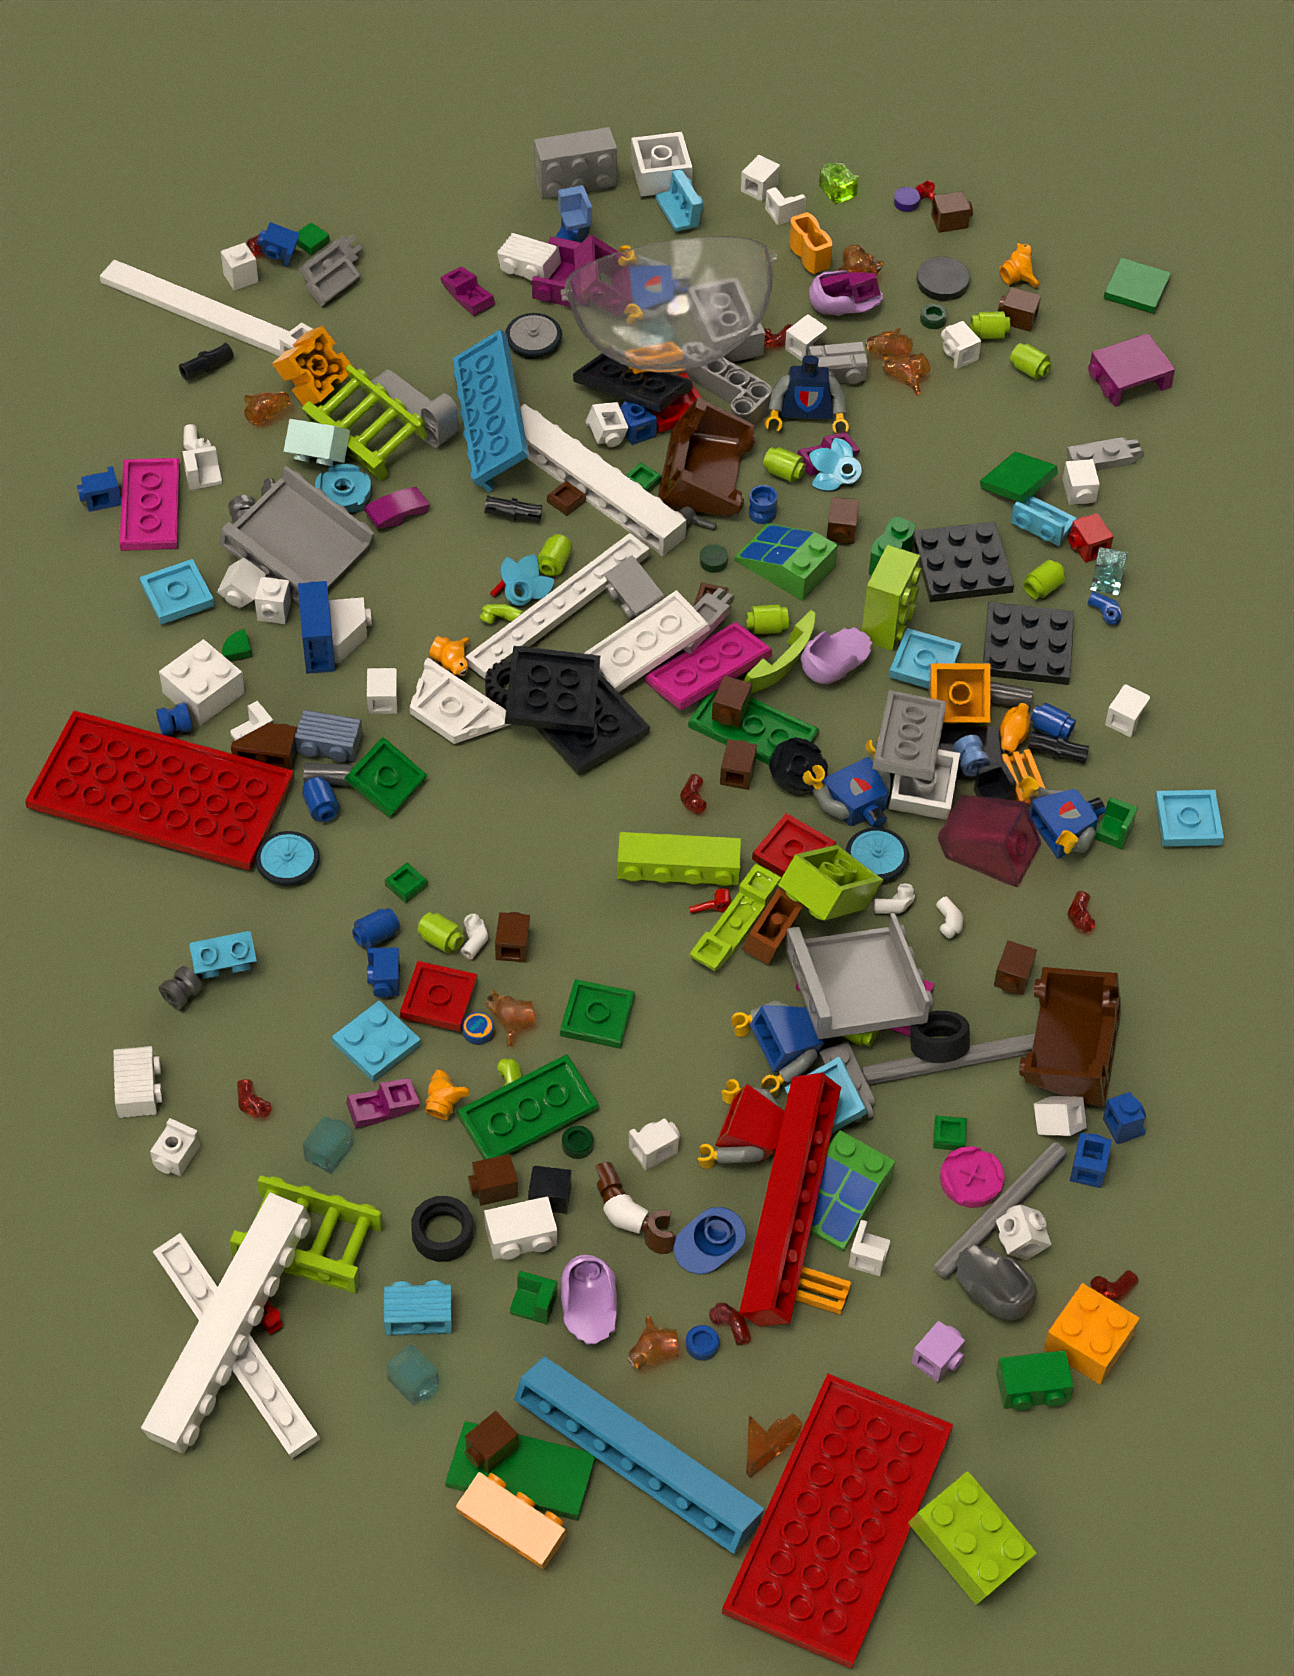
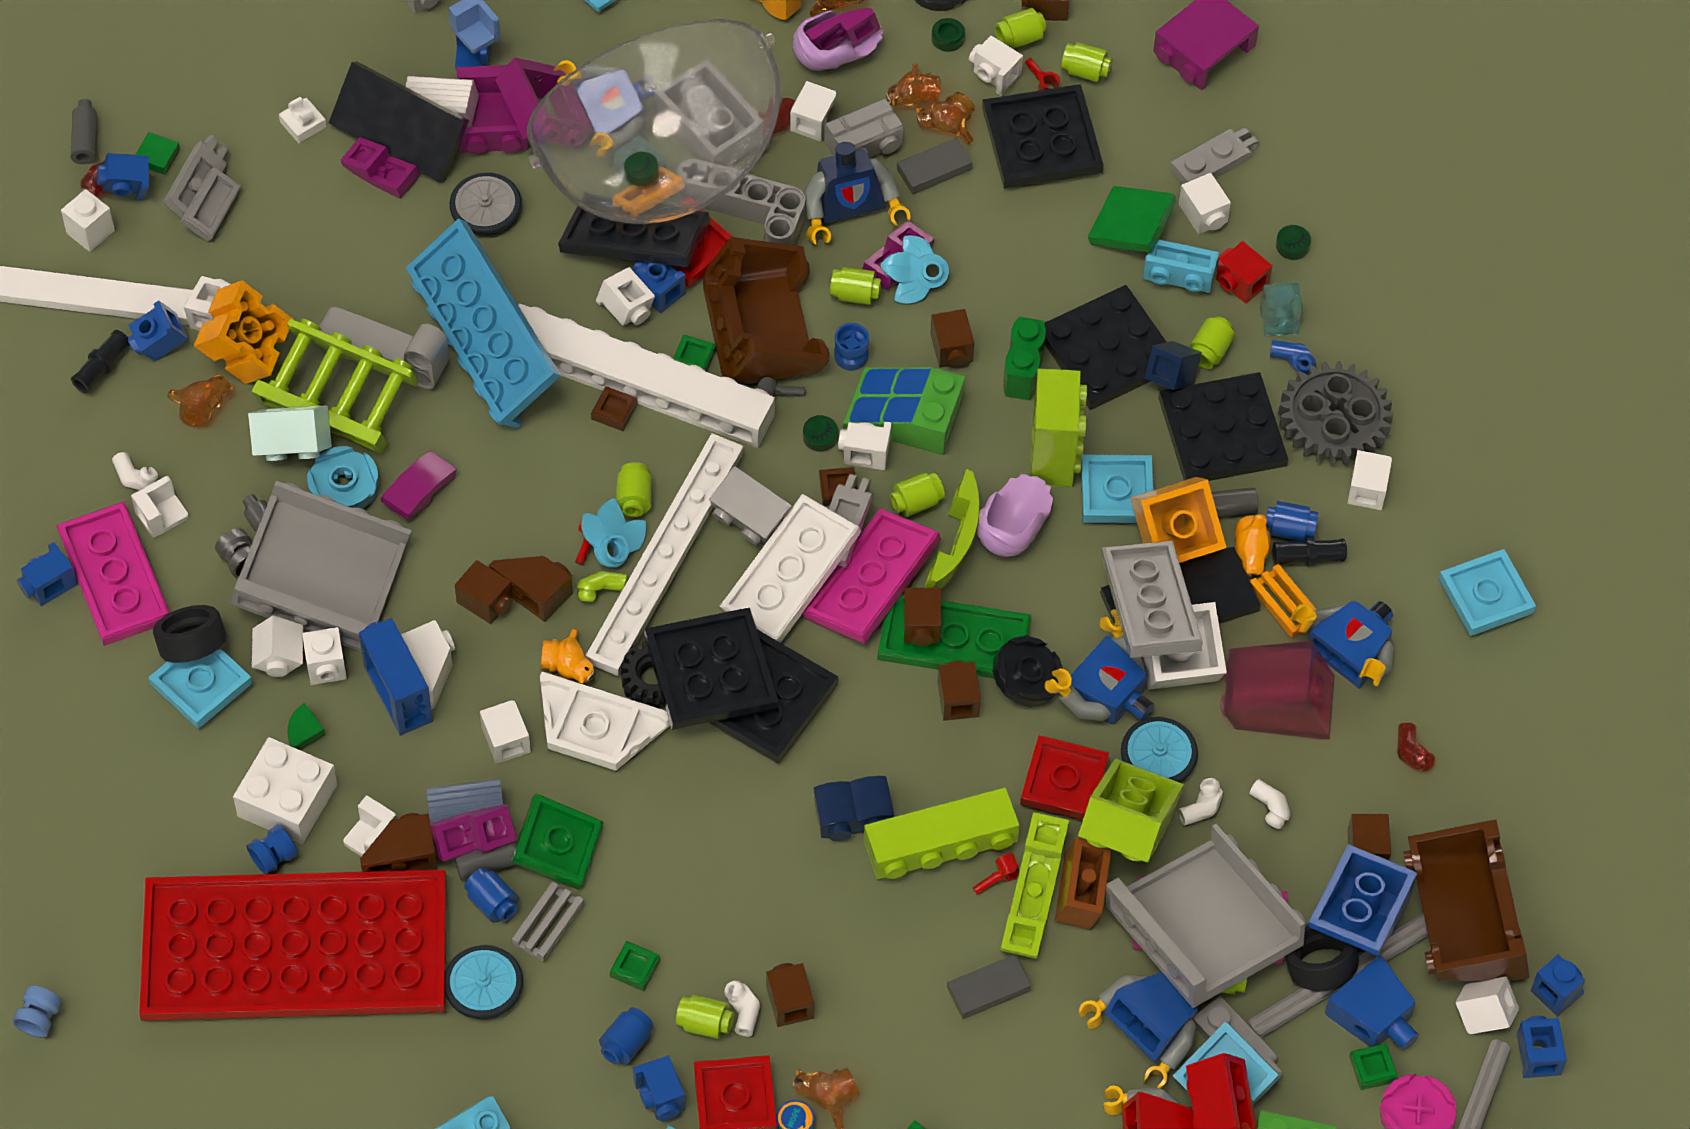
camera: 20 degrees left, 5 degrees up
(181, 555) = (189, 633): none -> black tyre
(254, 352) = (157, 332): none -> blue brick
(264, 210) = (83, 133): none -> dark grey cylinder
(324, 749) = (473, 830): none -> magenta slope
(351, 829) = (564, 897): none -> light grey tile
(410, 592) = (484, 592): none -> reddish brown brick
(425, 244) = (302, 119): none -> white tile
(450, 596) = (536, 583): none -> reddish brown slope
(493, 259) = (399, 120): none -> black tile
(513, 509) = (559, 443): black pin -> none
(597, 1013) = (923, 1055): green tile -> none
(614, 815) = (848, 806): none -> dark blue brick
(653, 335) = (641, 168): none -> dark green tile
(670, 980) = (988, 986): none -> dark grey tile
(690, 796) = (918, 748): clear red arm -> none
(744, 574) = (865, 445): none -> white brick
(883, 401) = (934, 165): none -> dark grey tile
(967, 1087) = (1374, 1006): none -> blue torso
(971, 754) = (1218, 589): medium blue wheel -> none
(974, 402) = (1042, 136): none -> black plate
(989, 1004) = (1363, 900): none -> blue slope
(994, 364) = (1043, 77): none -> red hand
(995, 782) = (1259, 622): black panel -> none
(1005, 585) = (1172, 365): none -> dark blue panel
(1116, 823) = (1411, 626): green panel -> none
(1121, 655) = (1335, 413): none -> dark grey gear
(1140, 529) = (1293, 242): none -> dark green tile

